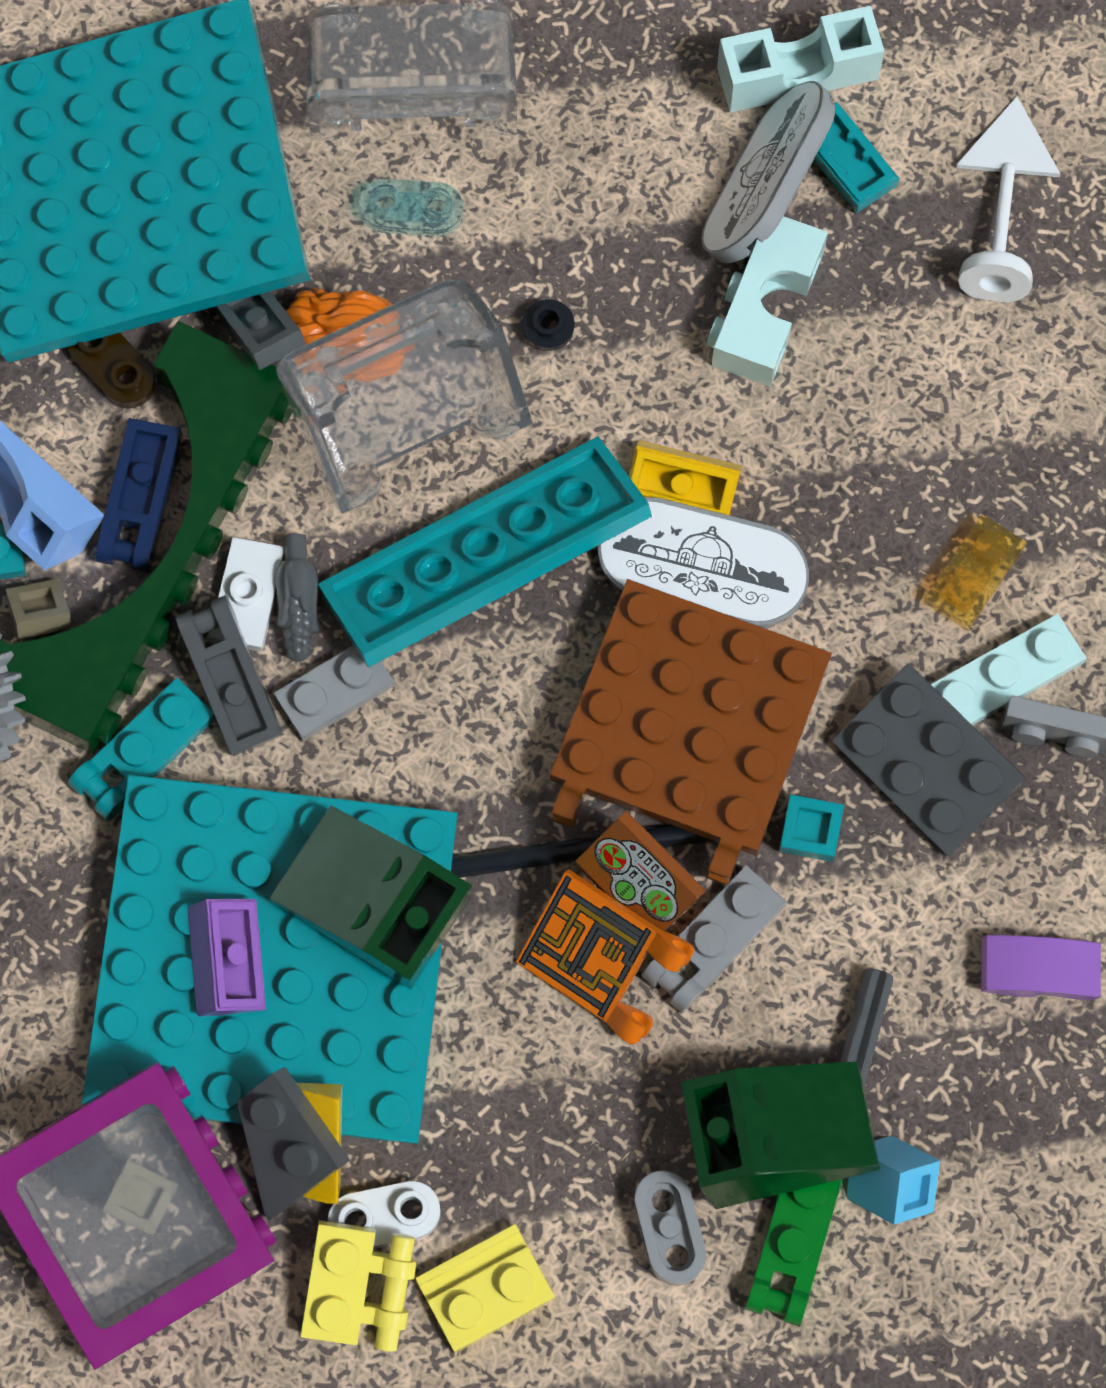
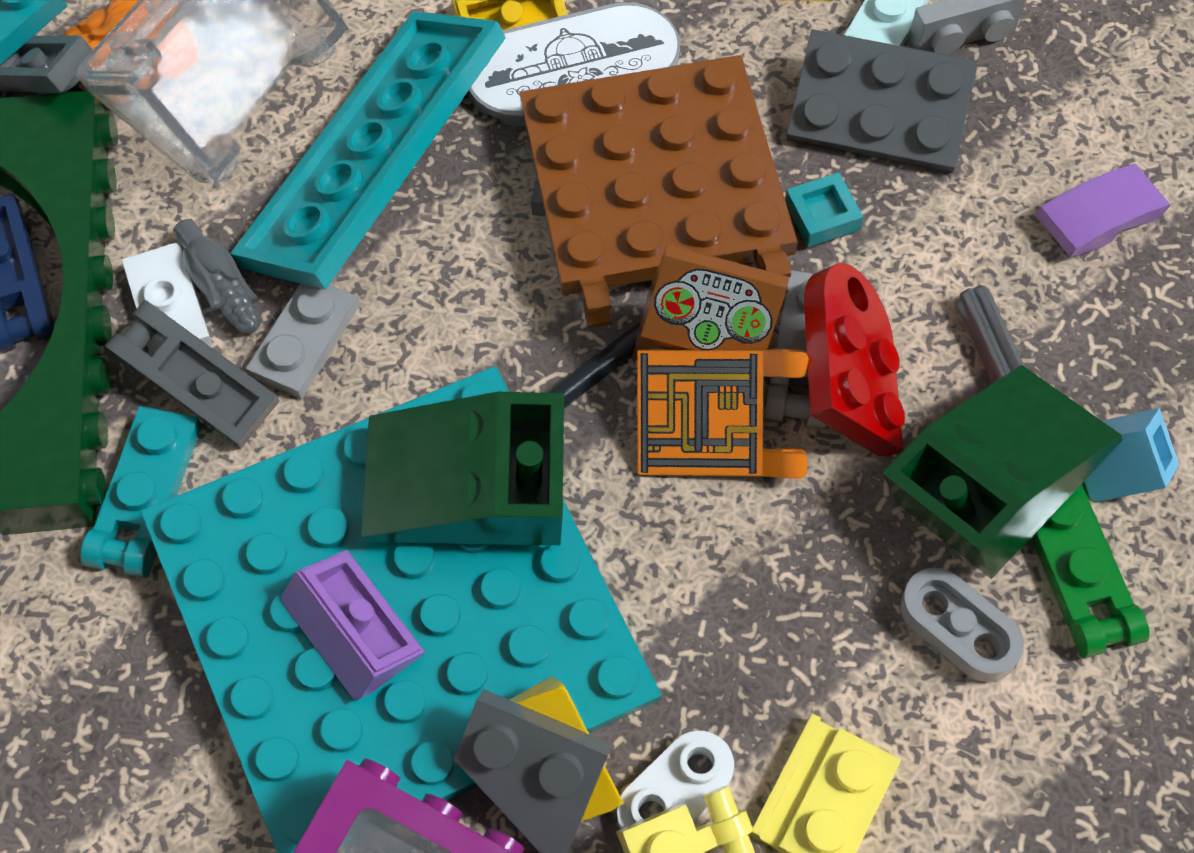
camera: 30 degrees left, 10 degrees down
(732, 974) = (852, 360): none -> red plate

